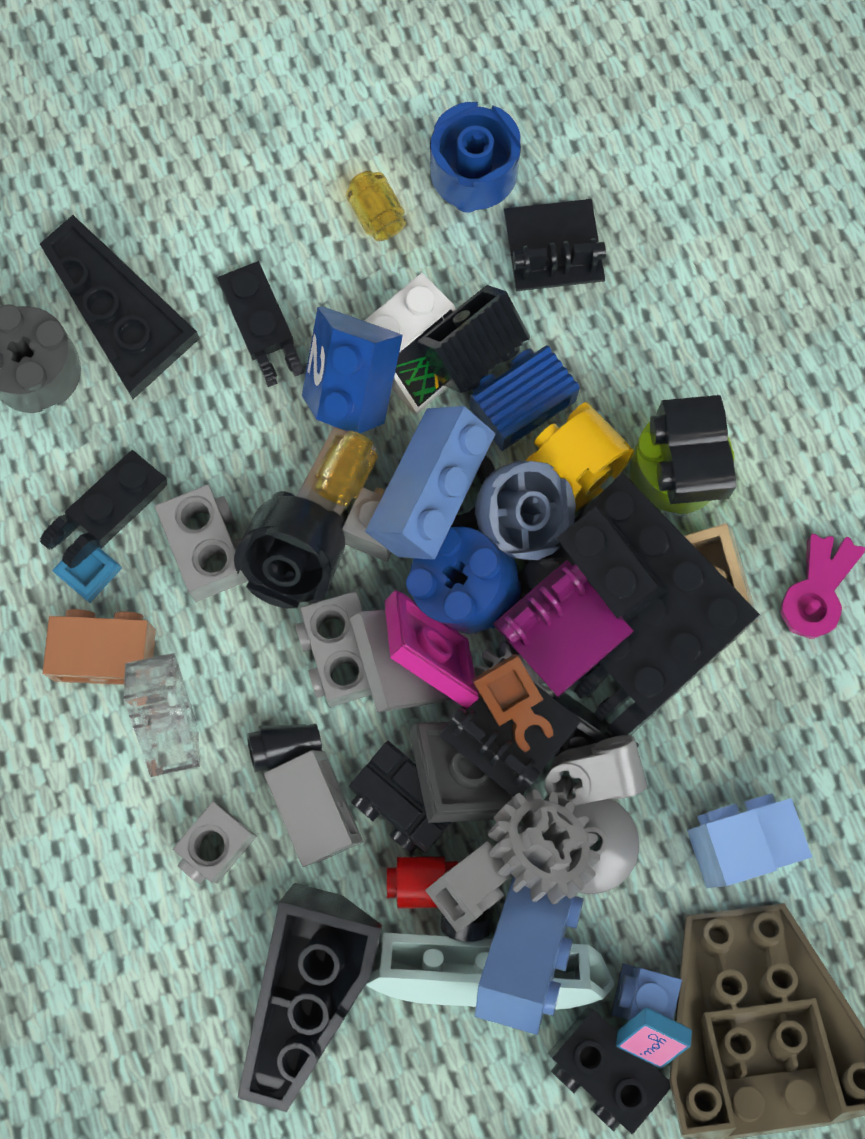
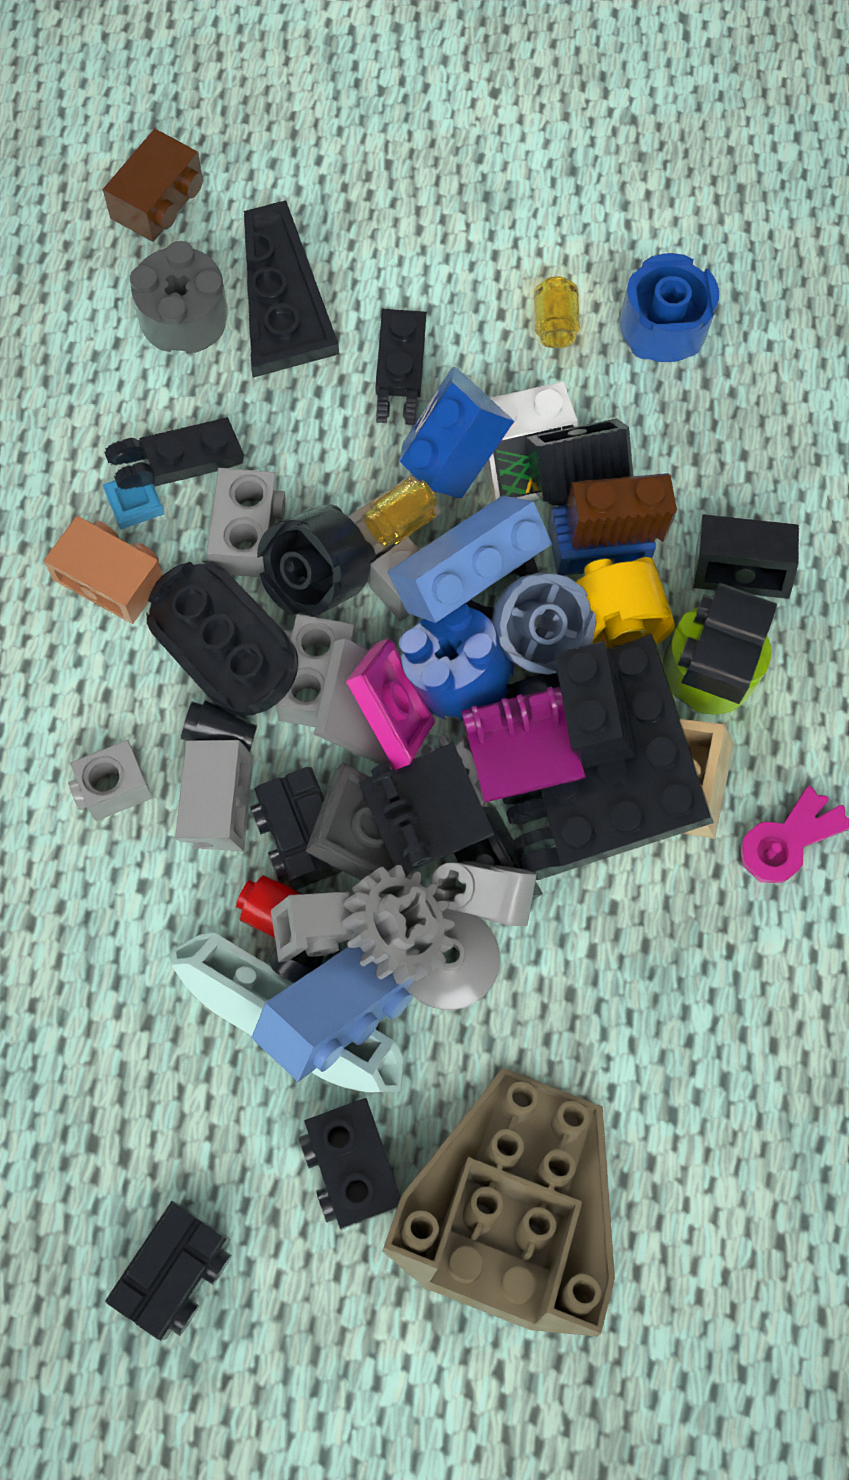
camera: 25 degrees right, 5 degrees down
(161, 714) = (124, 643): clear brick -> none
(245, 661) = (222, 638): none -> black tile
(311, 978) = (123, 940): black wedge -> none
(509, 696) = (439, 772): dark orange plate -> none
(537, 371) = (620, 510): none -> reddish brown brick
(554, 245) = (703, 420): black hinge -> none
(642, 989) = (422, 1117): medium blue brick -> none
(654, 1037) = (406, 1148): tile -> none
(659, 355) = (752, 553): none -> black brick
(749, 843) = (594, 1029): light blue brick -> none

